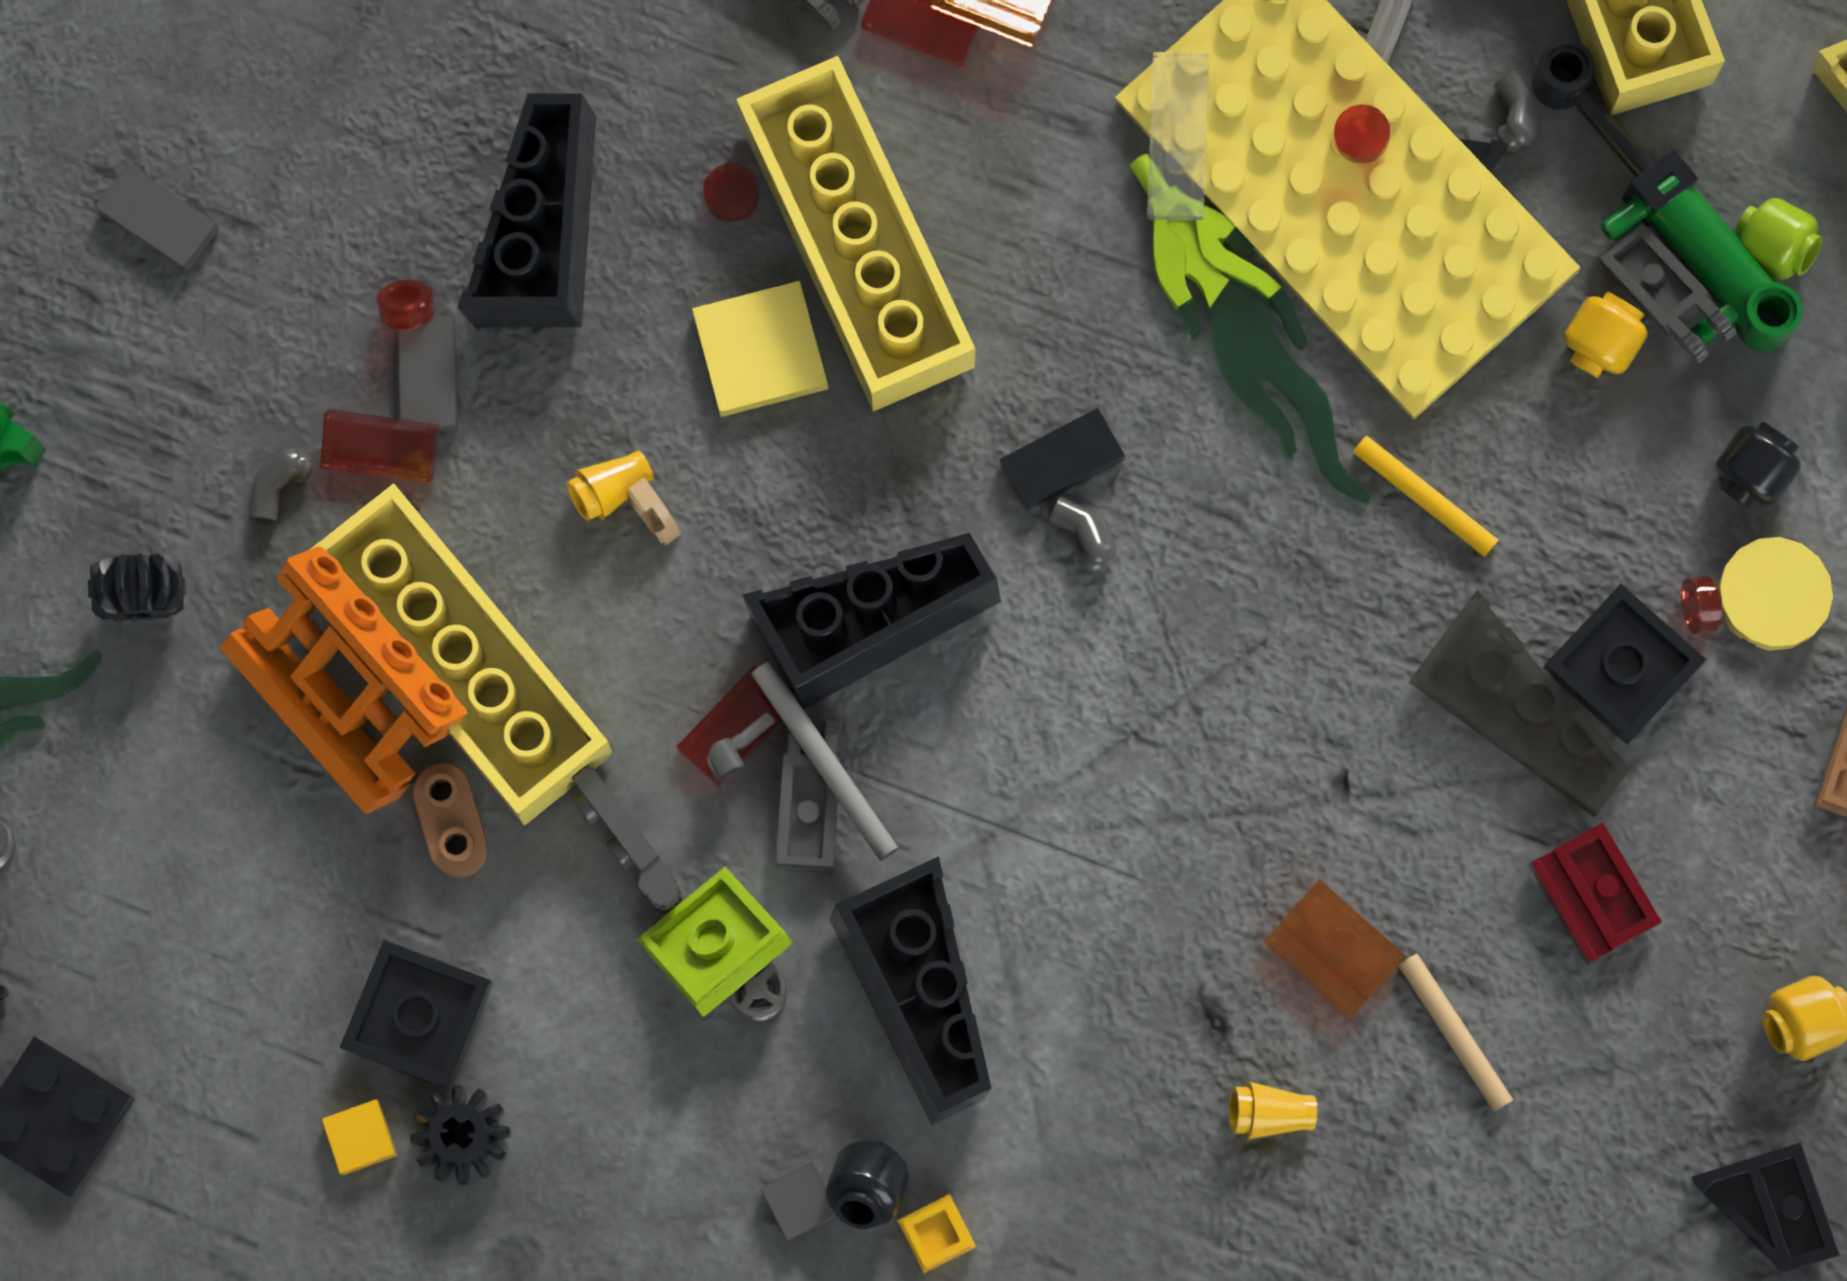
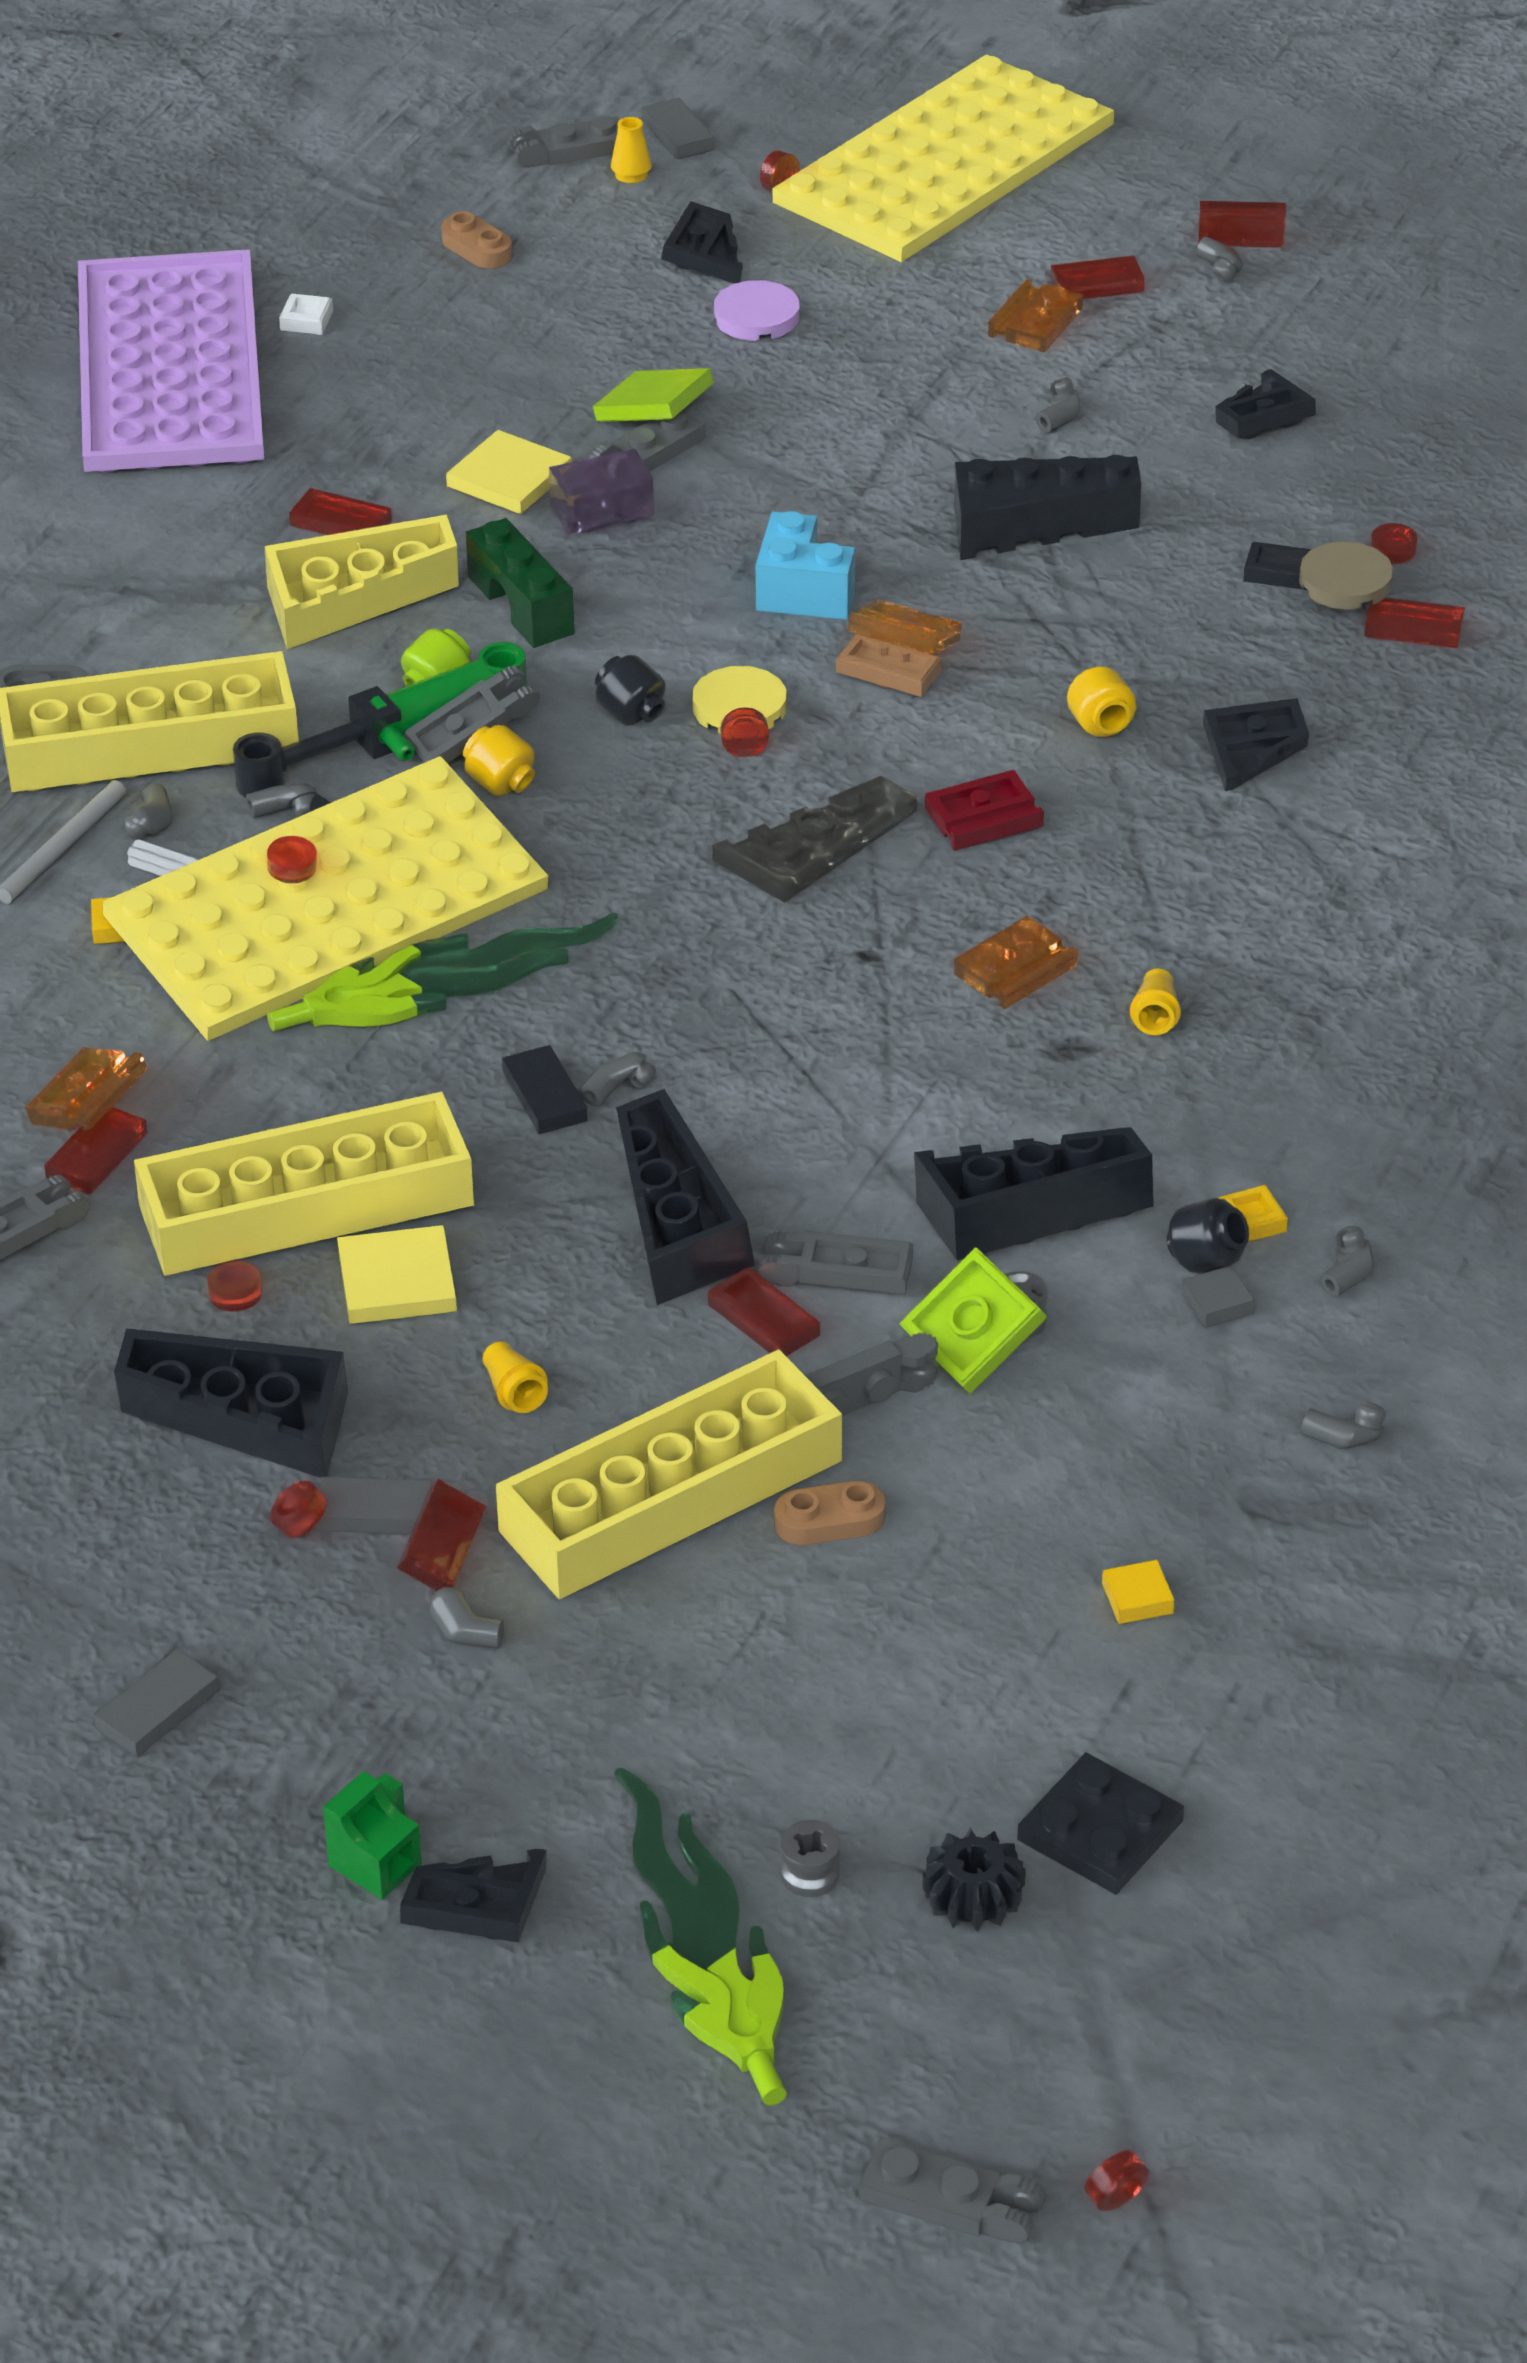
camera: 85 degrees left, 35 degrees down
(136, 587) = (562, 1706): black gear -> none
(313, 701) = (707, 1578): orange fence -> none
(416, 1015) = (1022, 1538): black plate -> none
(467, 1116) = (1143, 1508): black gear -> none
(653, 512) = (545, 1345): tan tile -> none
(724, 755) = (795, 1302): dark grey hand -> none
(825, 761) = (810, 1233): light grey bar -> none
(1178, 136) = (261, 976): clear tile -> none
(1425, 496) = (619, 881): yellow bar -> none
(1455, 1032) = (1097, 898): tan bar -> none
(1624, 664) = (787, 776): black plate -> none

